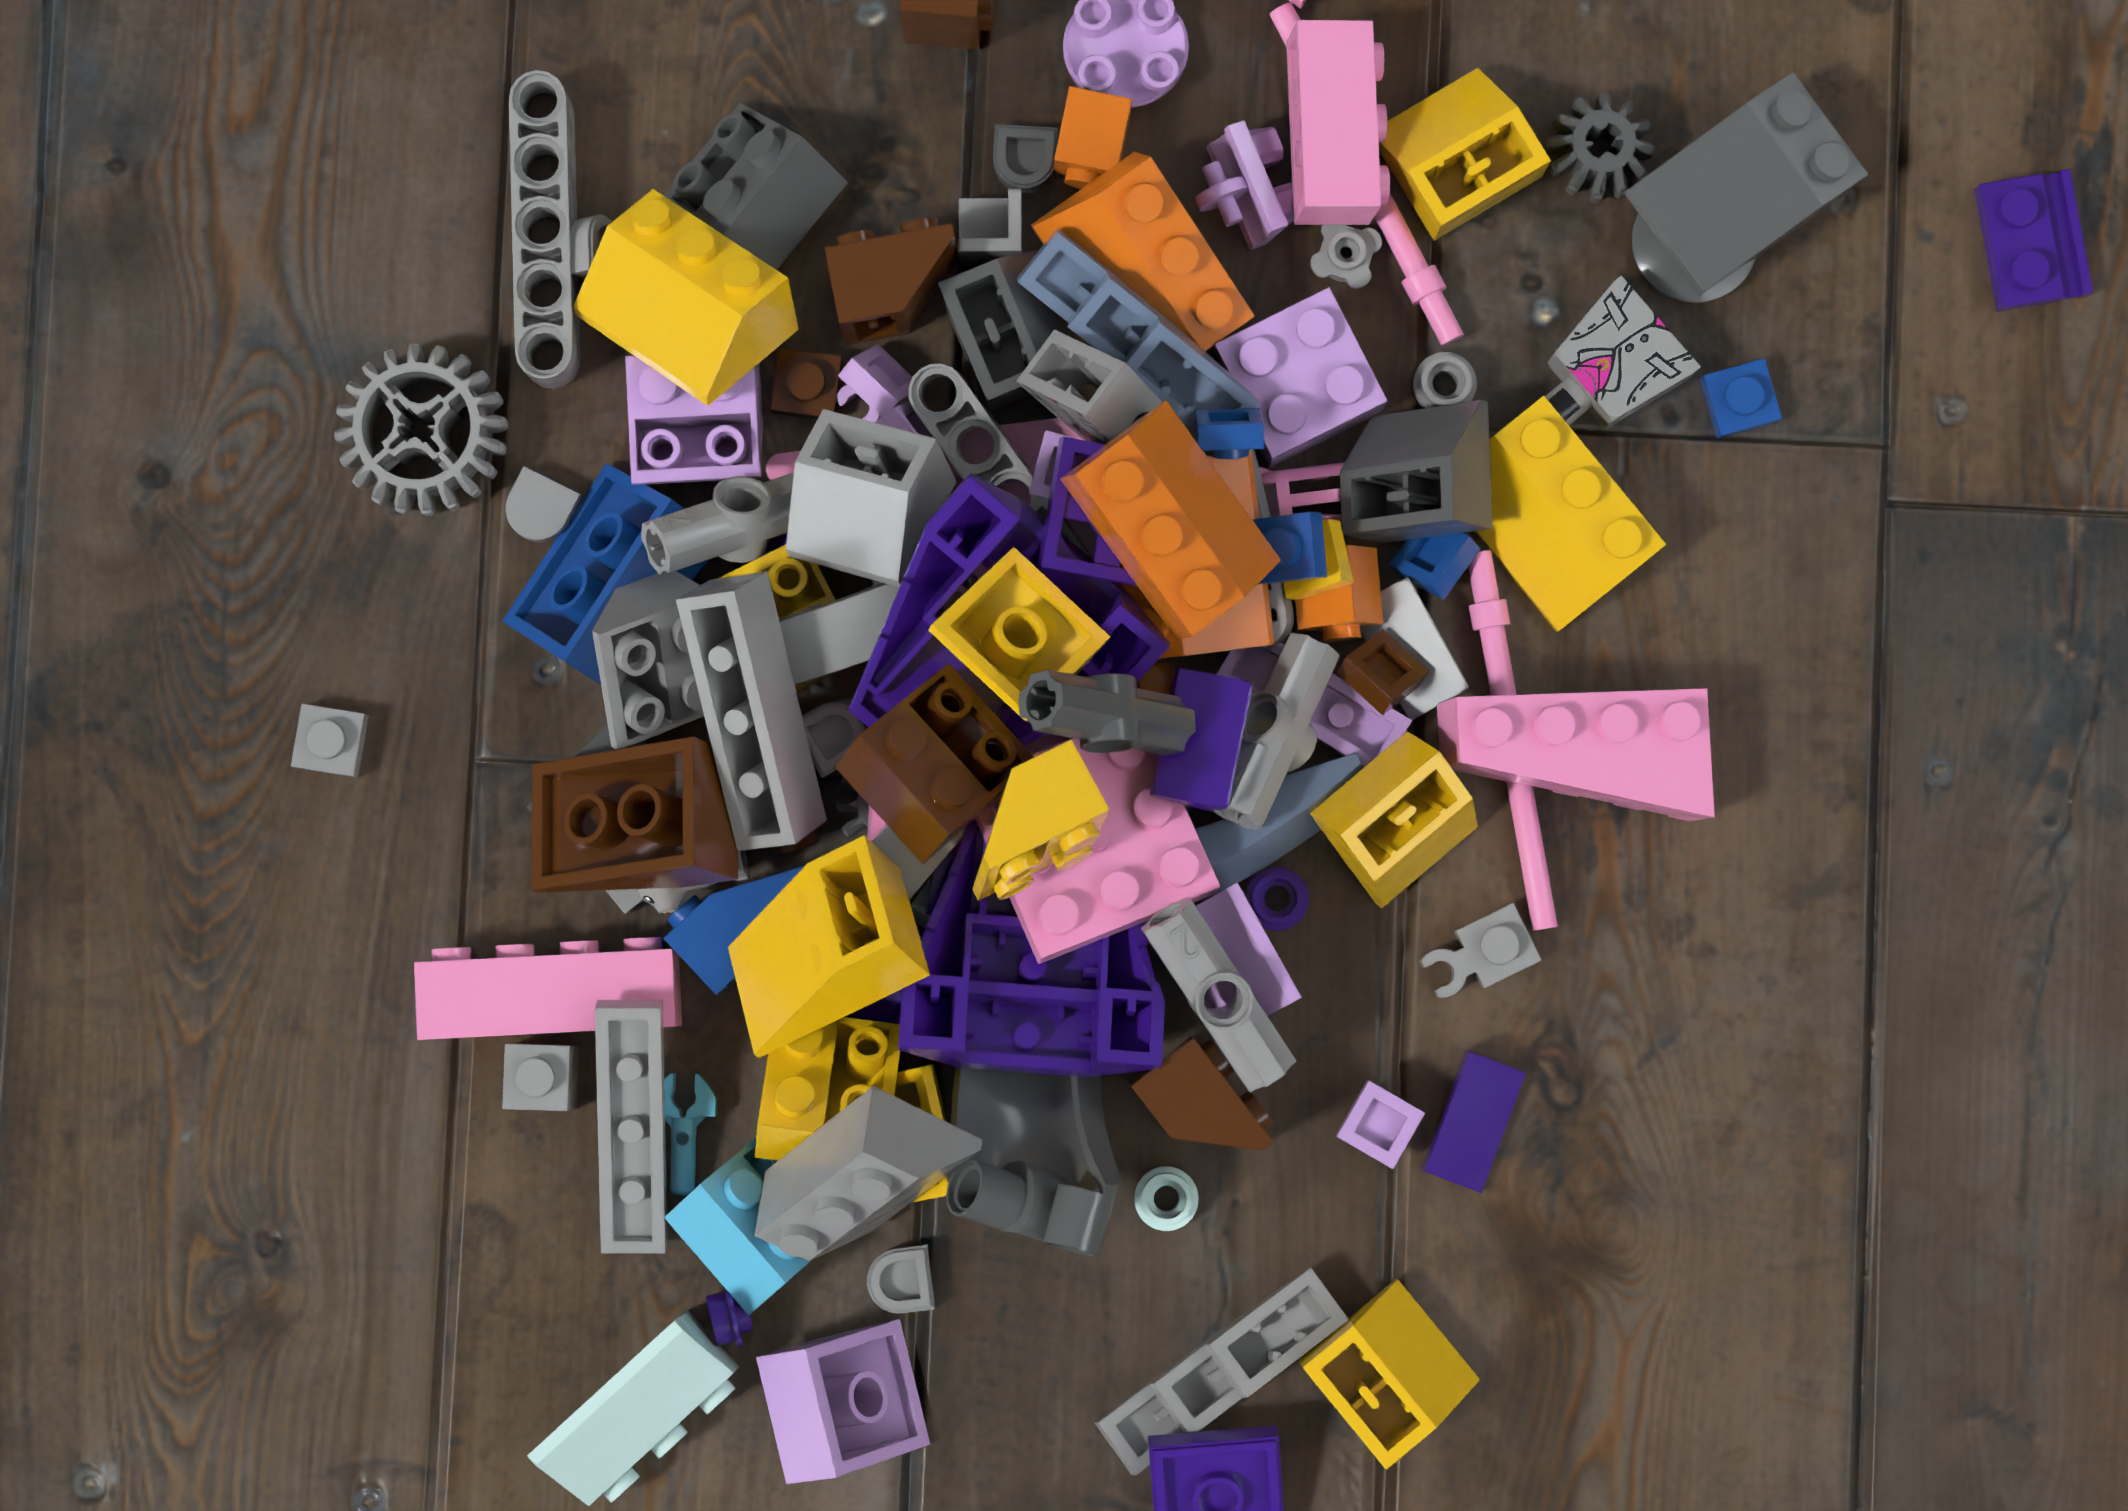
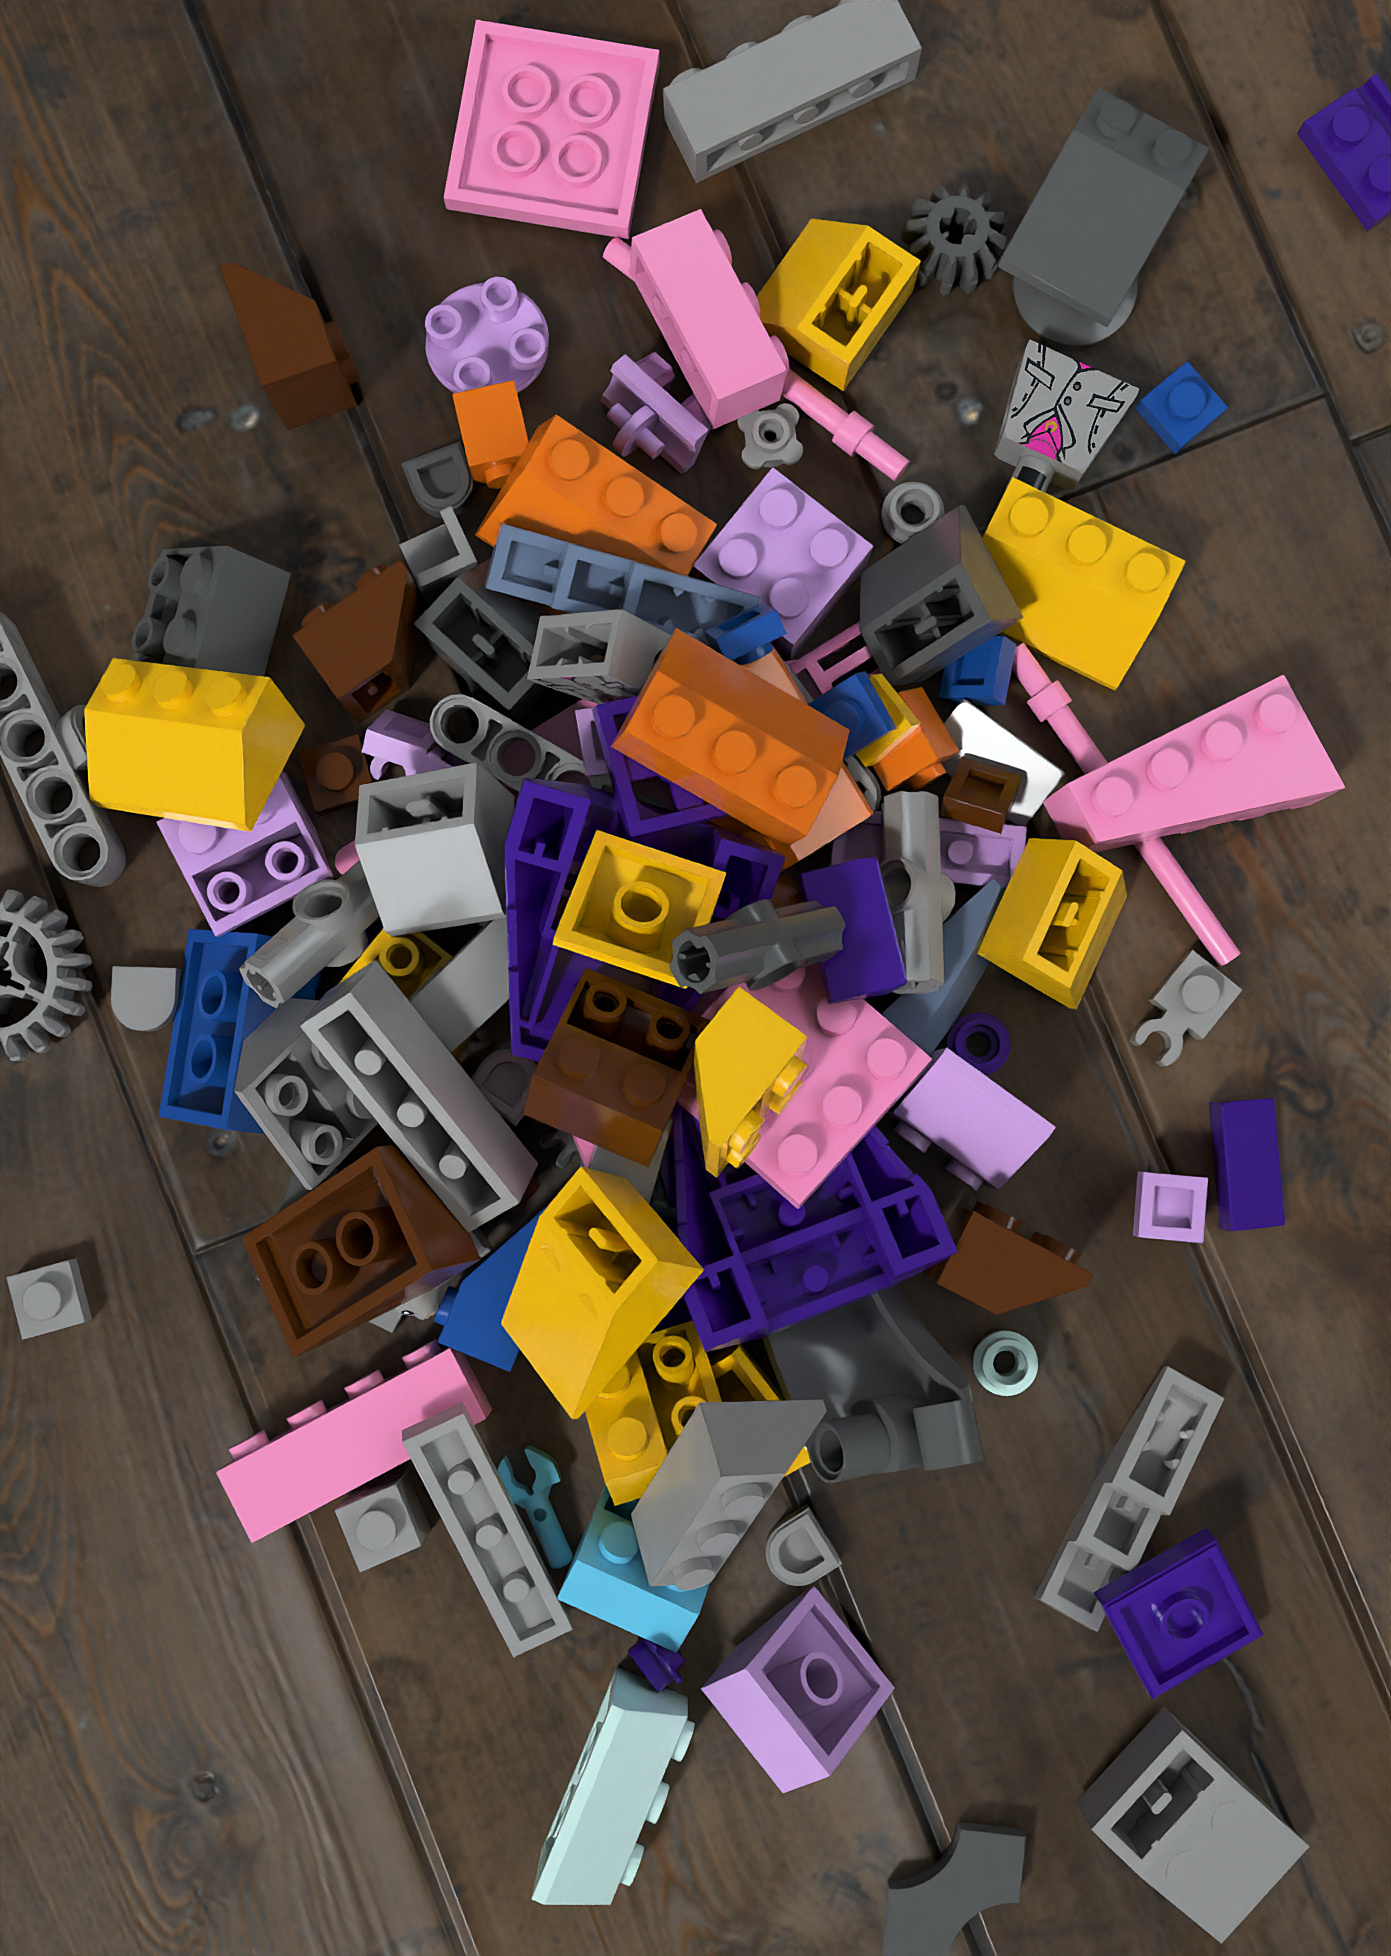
camera: 30 degrees left, 0 degrees up
(1241, 1025) = (947, 1143): light grey piece -> none
(1390, 1373) = (1287, 1432): yellow slope -> none

